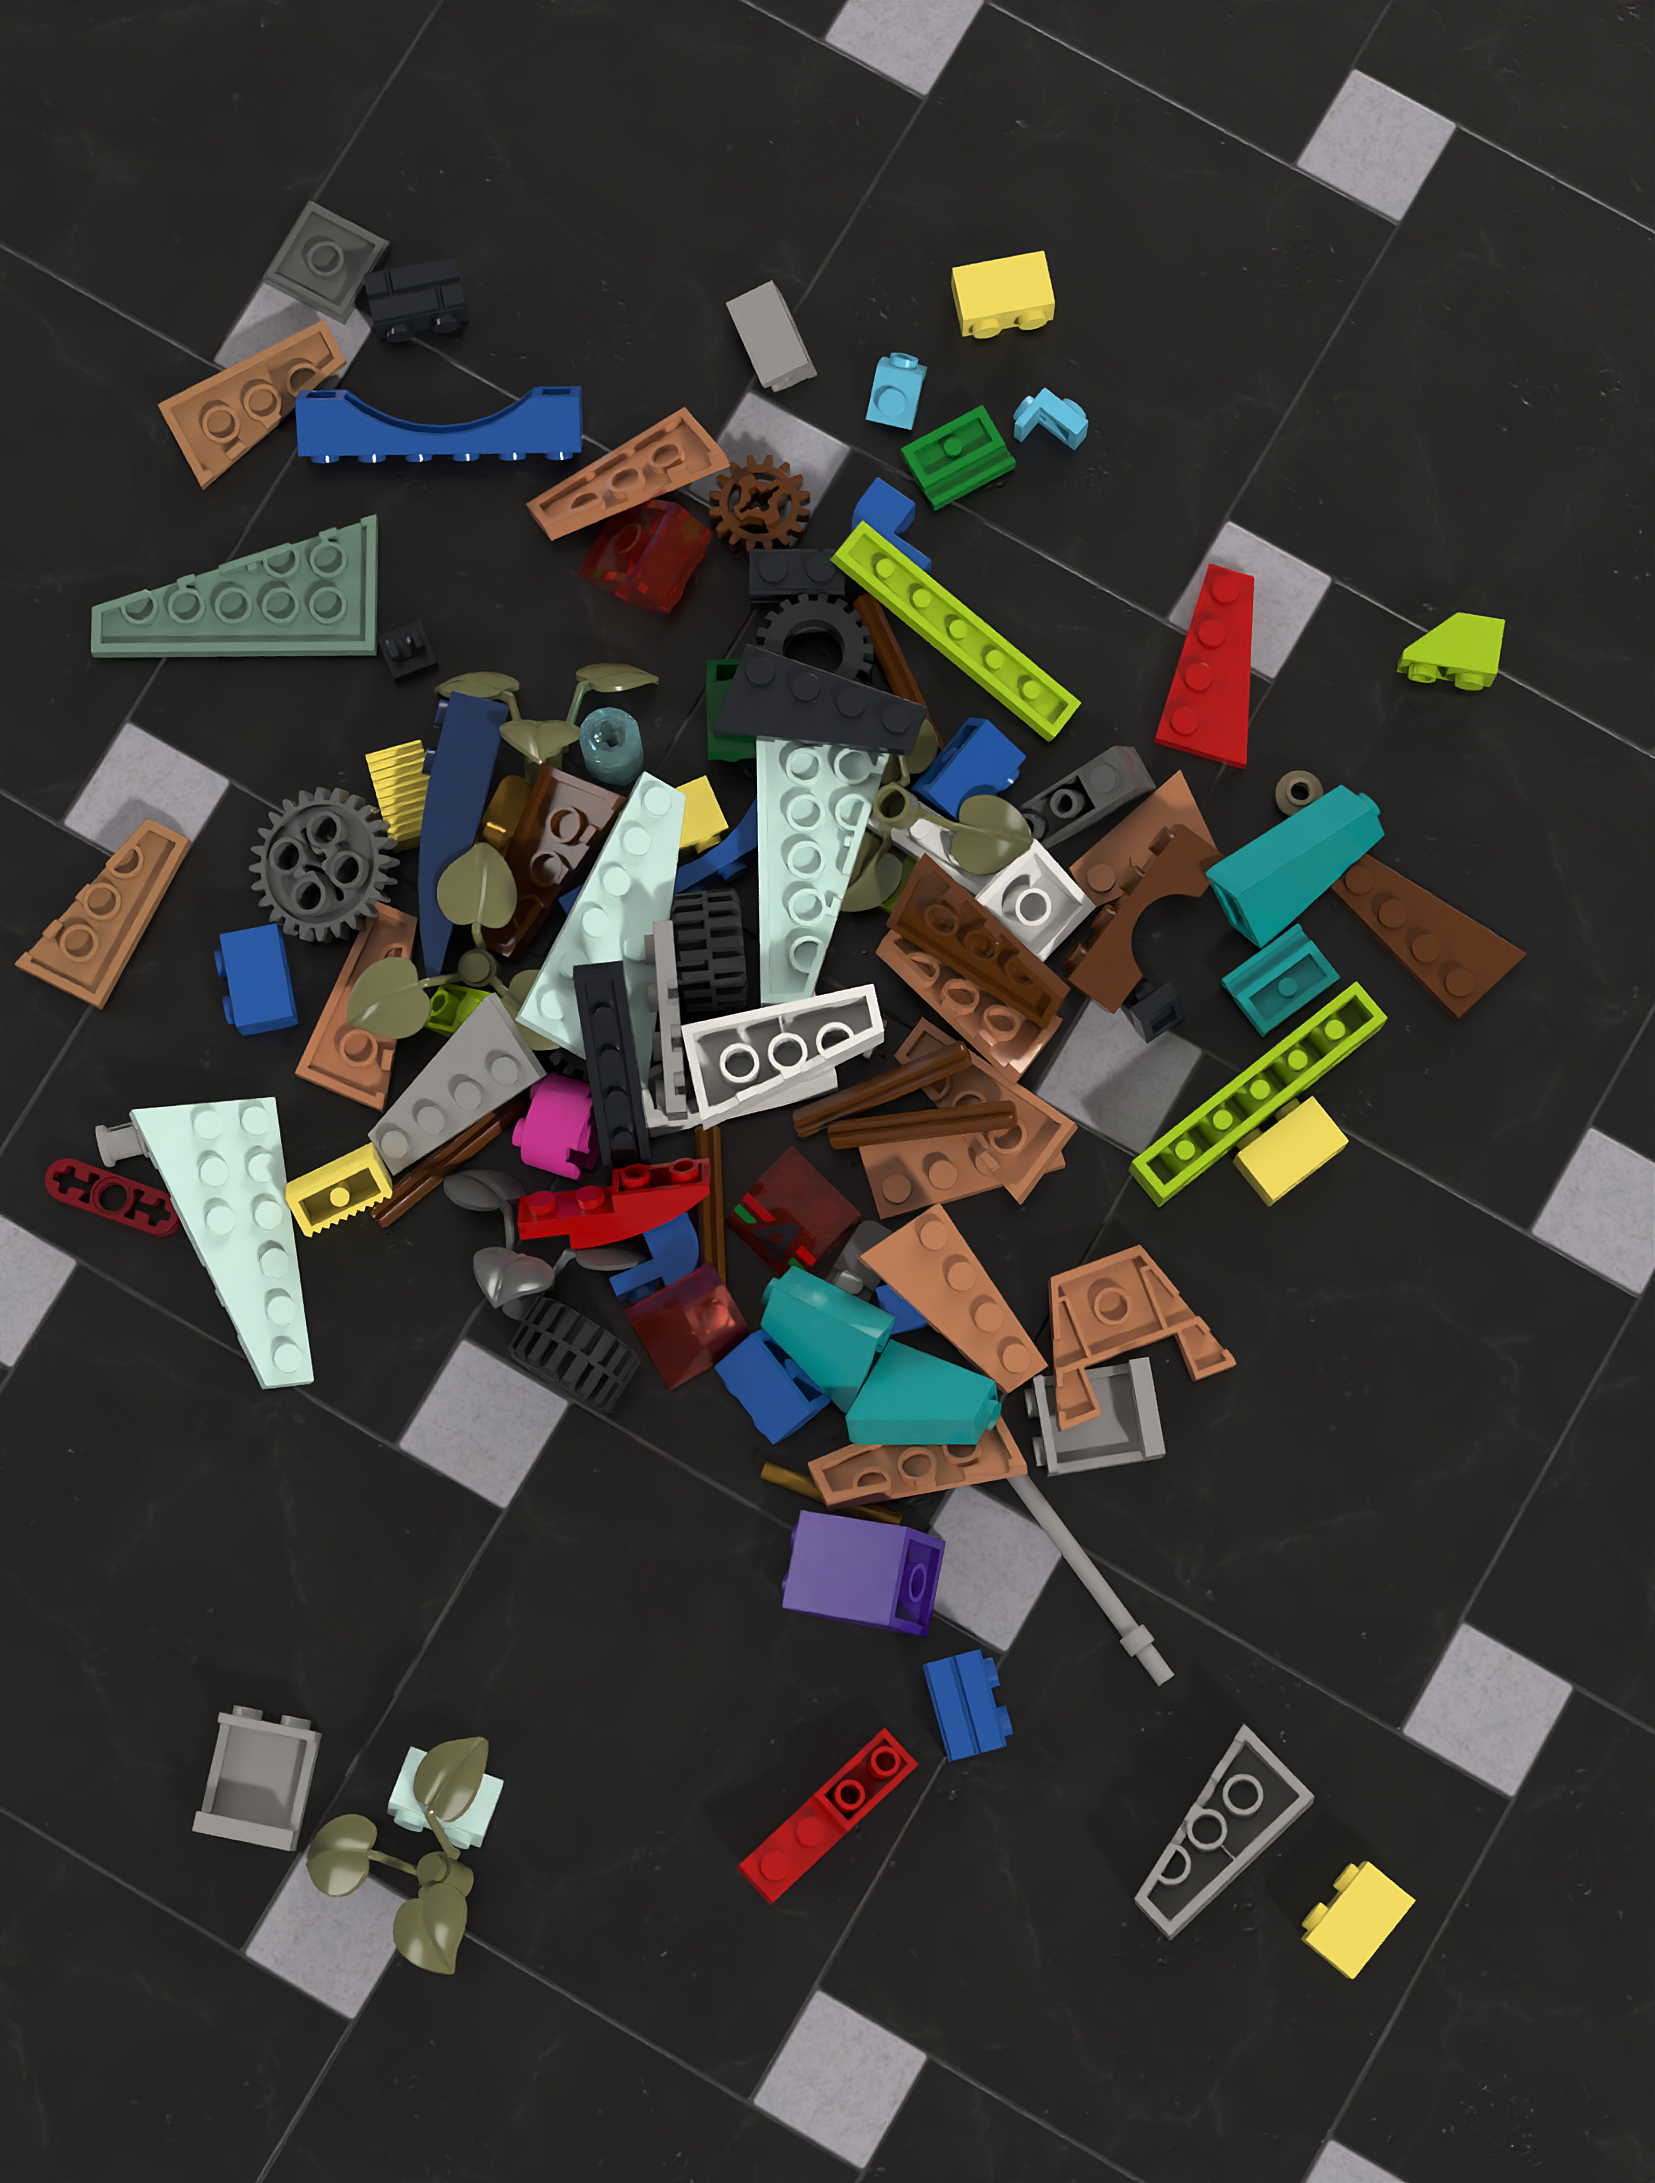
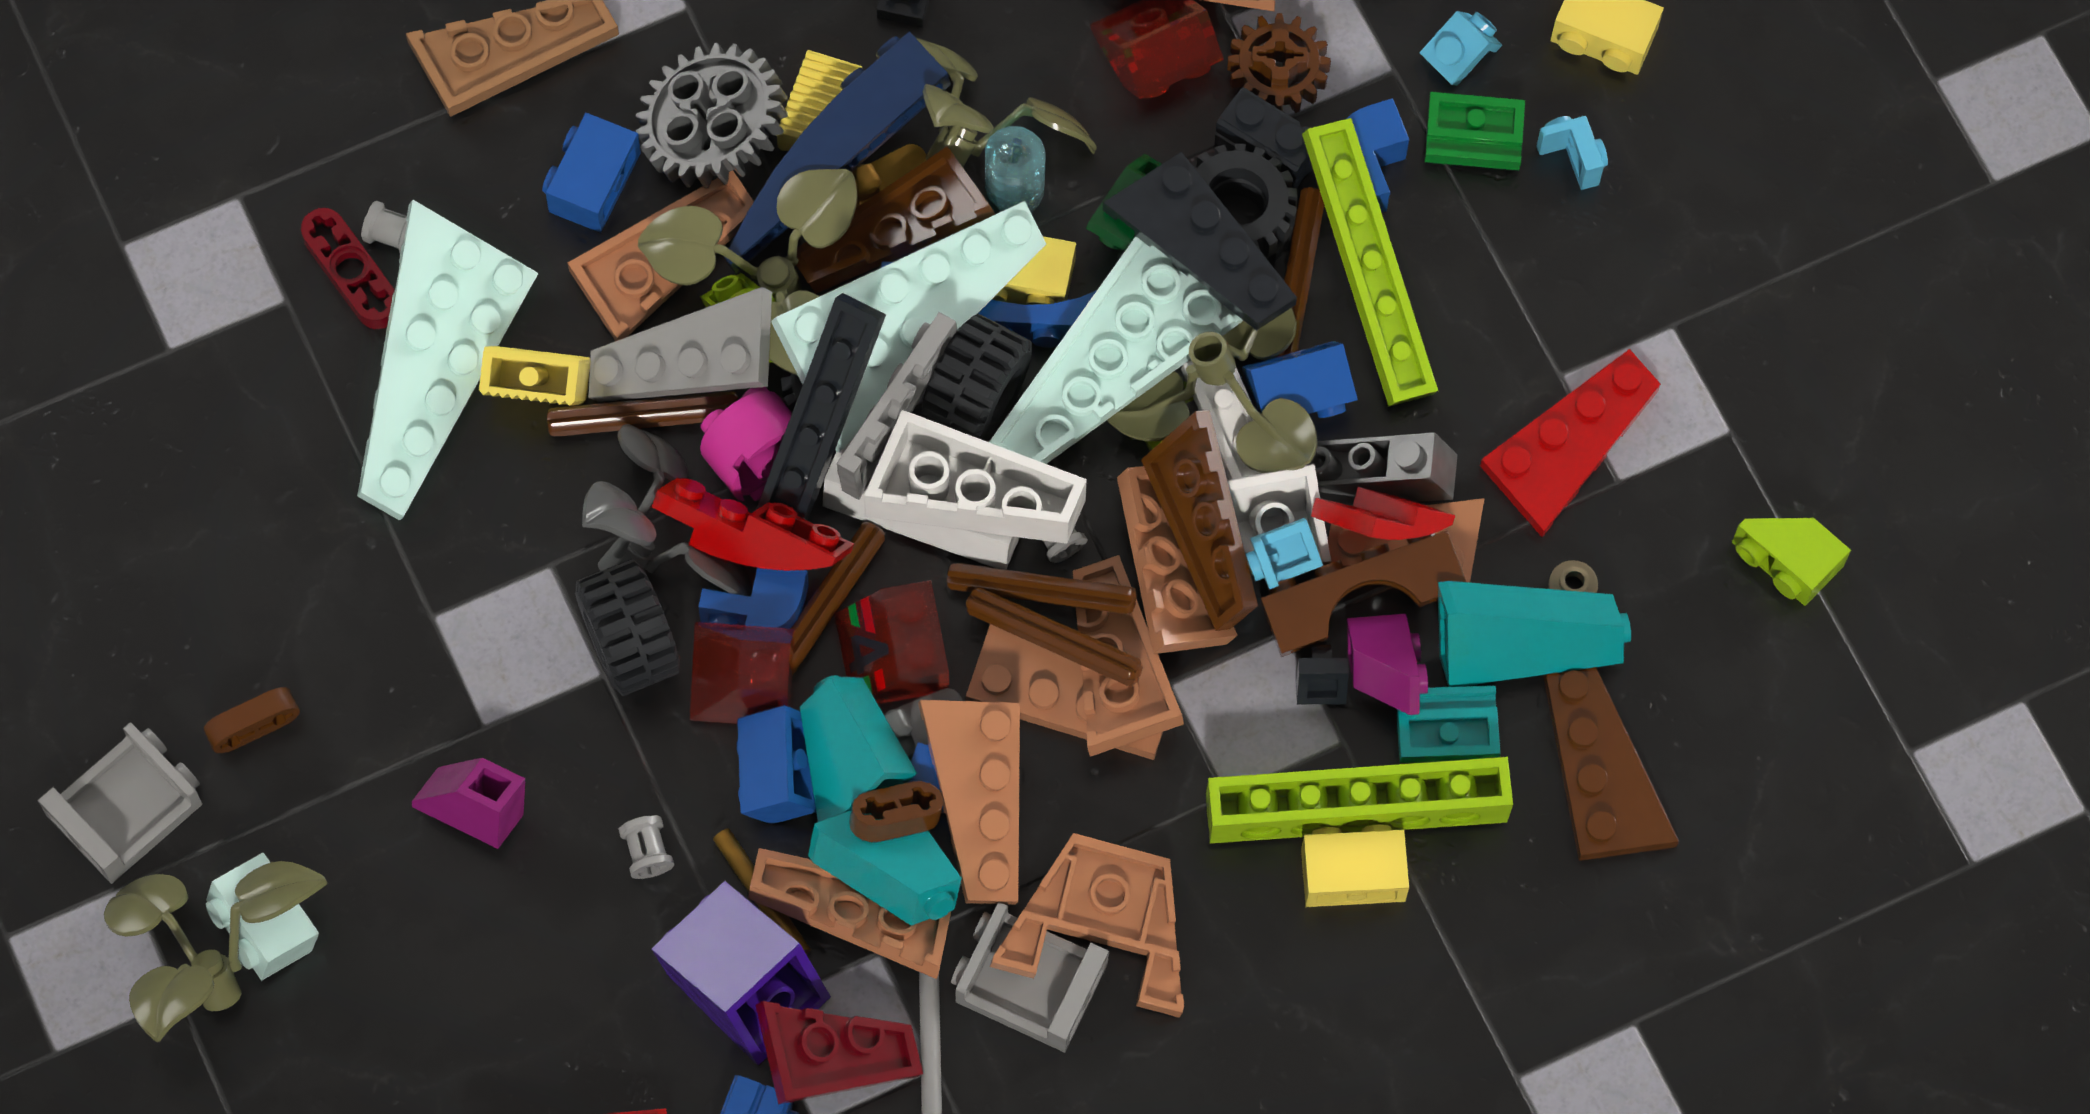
camera: 30 degrees right, 10 degrees down
(314, 1638) = (251, 720): none -> reddish brown beam
(545, 1580) = (474, 799): none -> magenta slope
(713, 1522) = (646, 847): none -> light grey bush
(896, 1356) = (896, 811): none -> reddish brown beam
(989, 1592) = (833, 1054): none -> dark red wing
(1060, 929) = (1283, 553): none -> medium azure bracket
(1120, 845) = (1383, 516): none -> red slope
(1200, 963) = (1385, 661): none -> magenta slope

